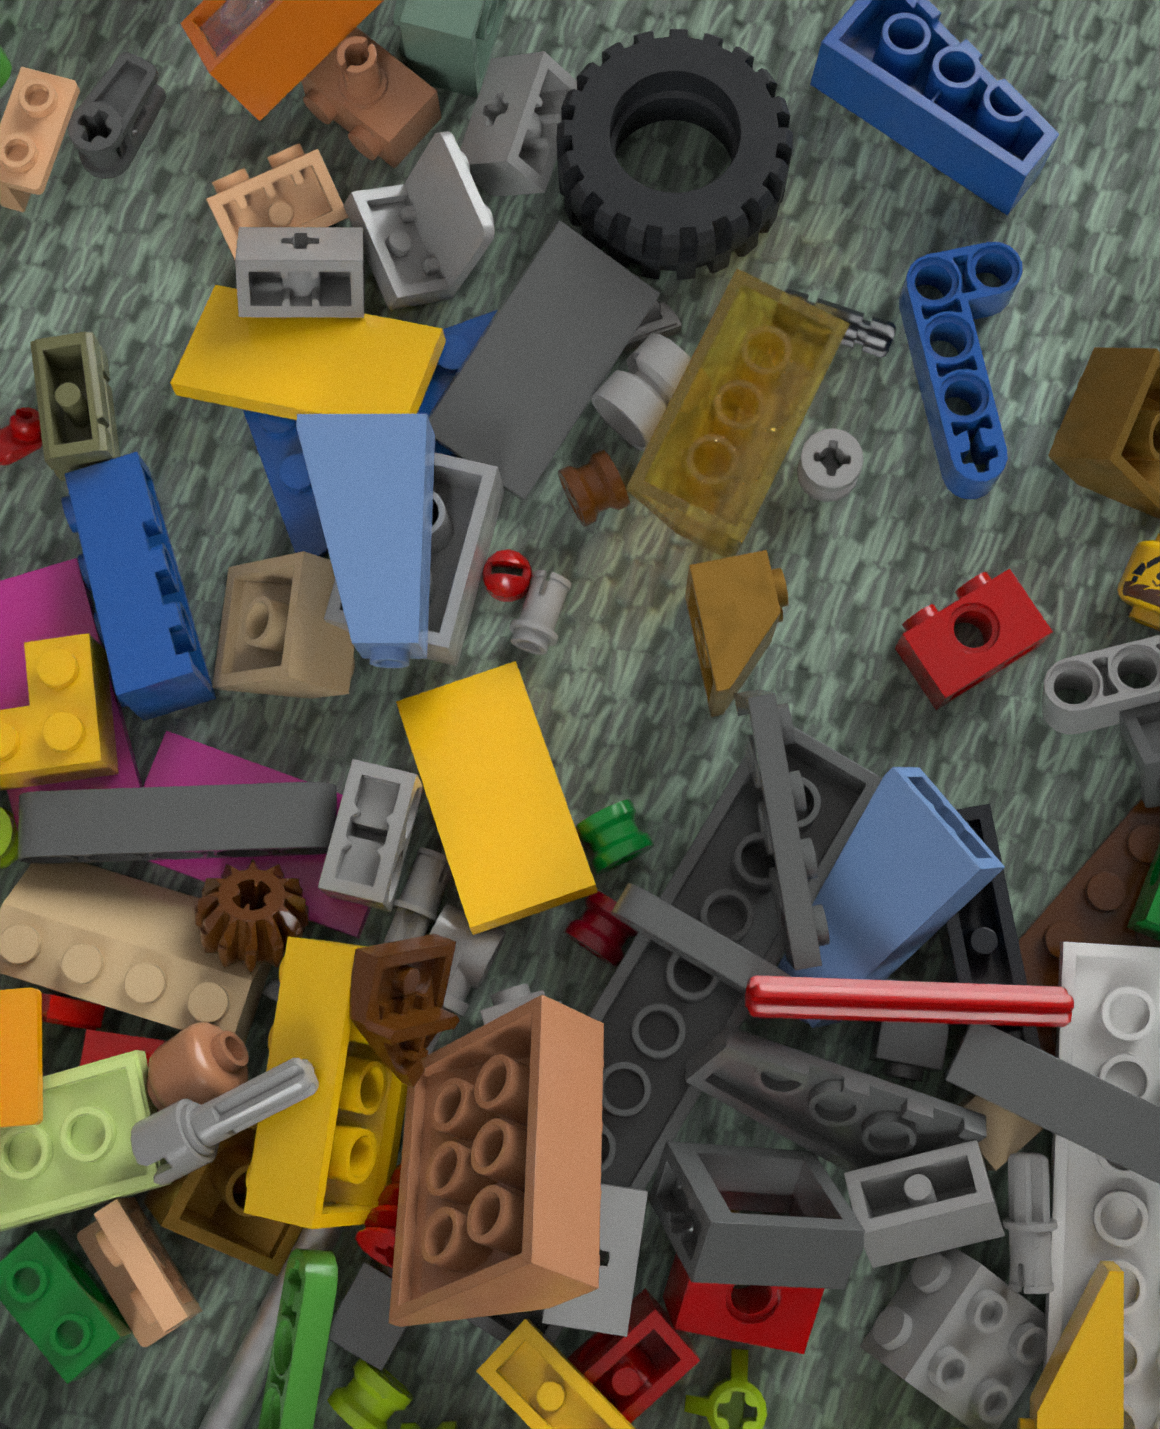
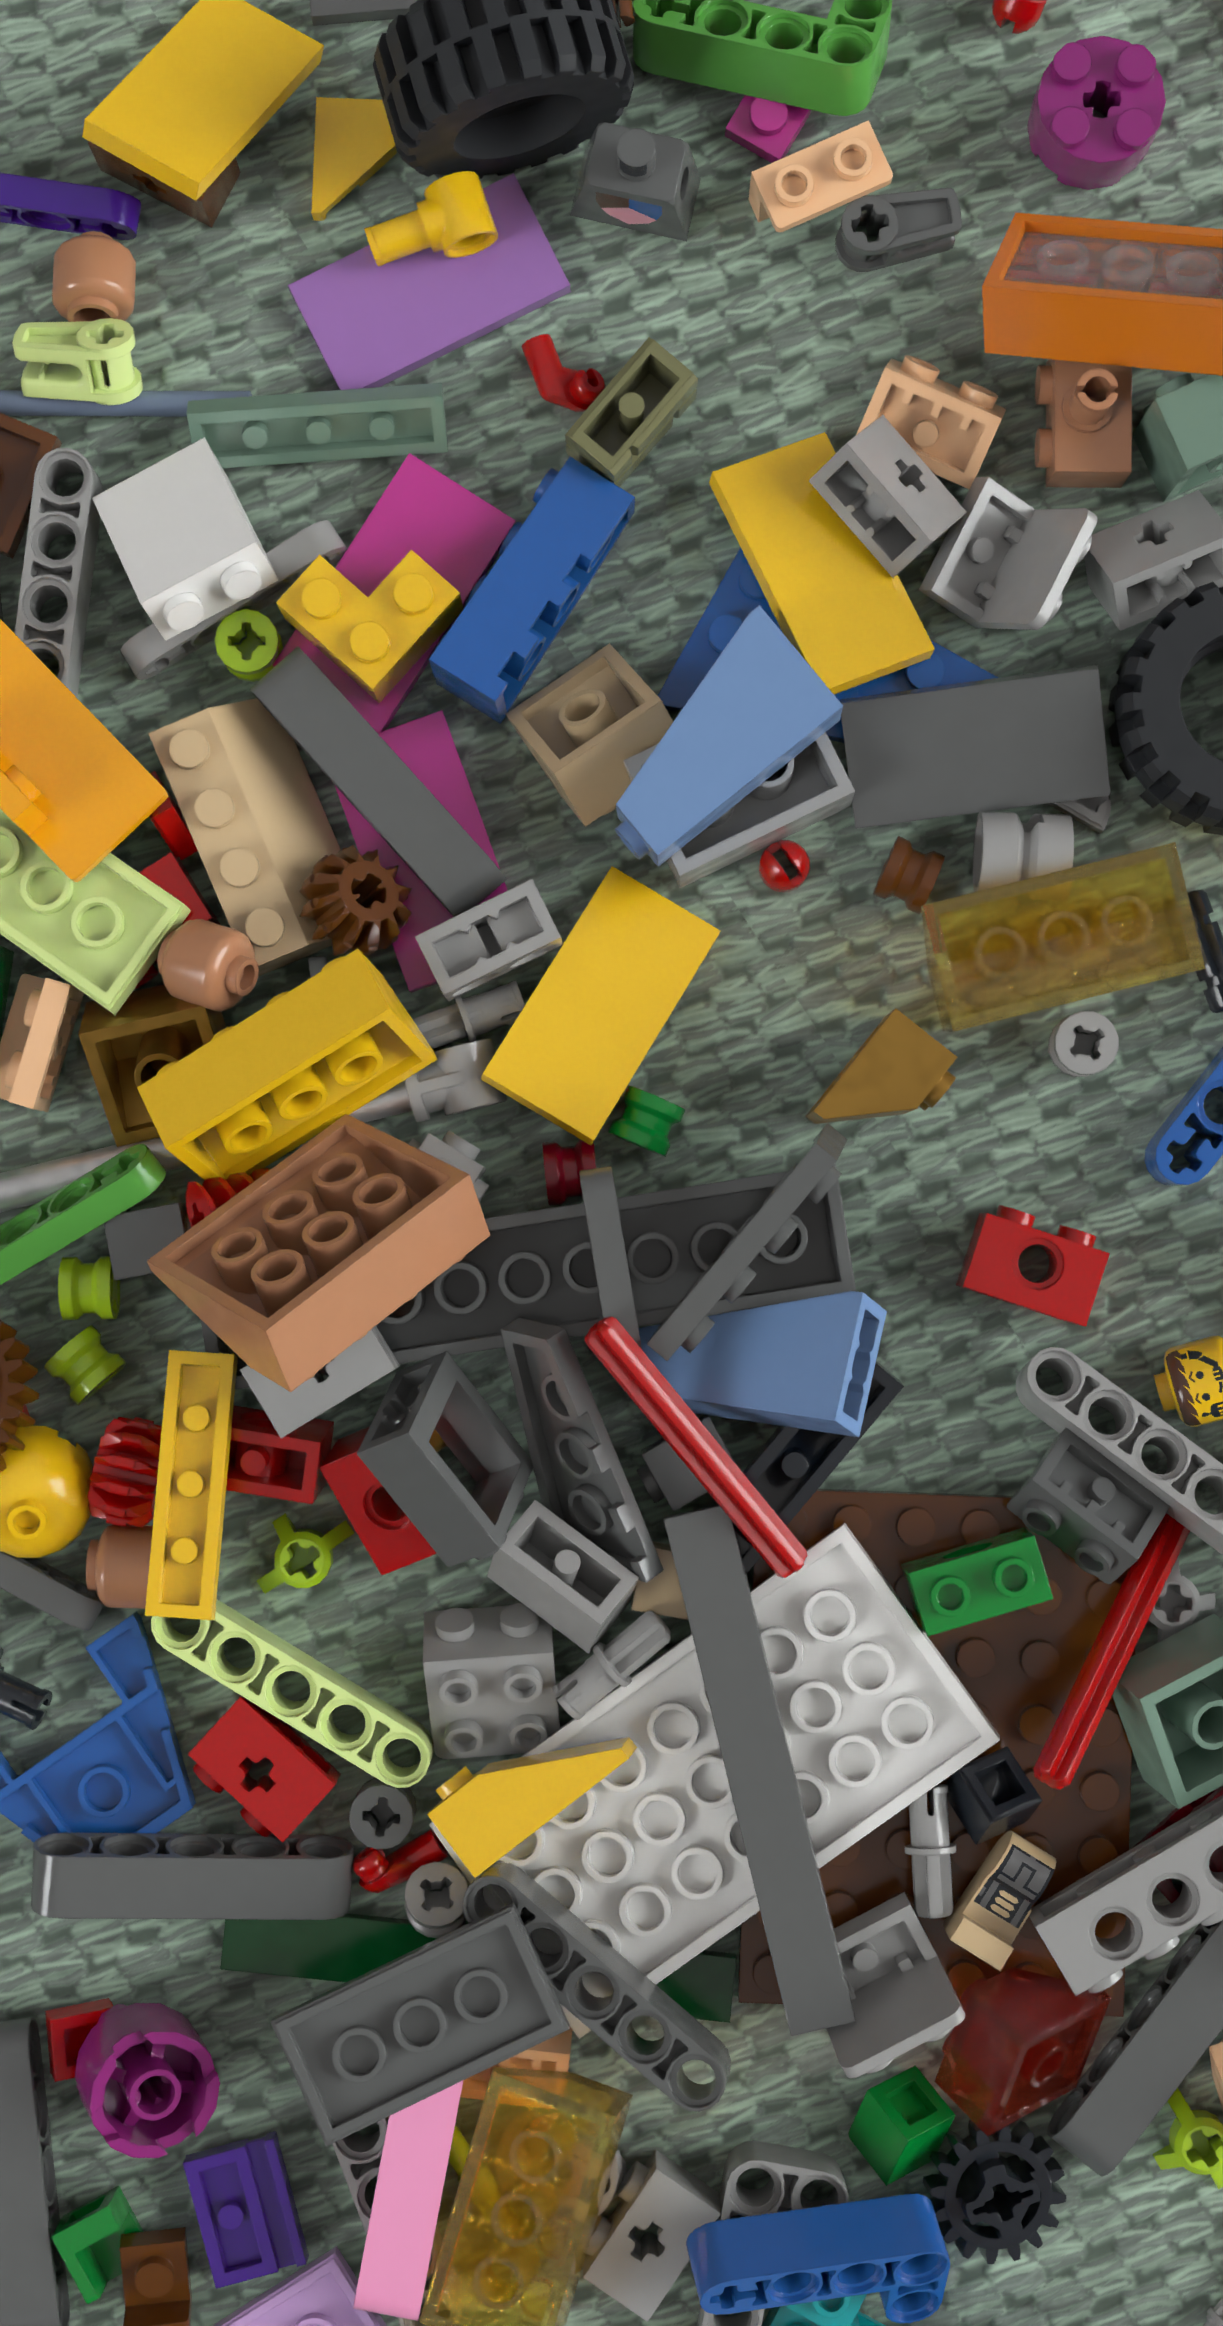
camera: 50 degrees right, 10 degrees up
(191, 1132) = (159, 1001): light grey piece -> none
(400, 999) = (383, 1069): reddish brown slope -> none
(540, 613) = (774, 917): light grey pin -> none

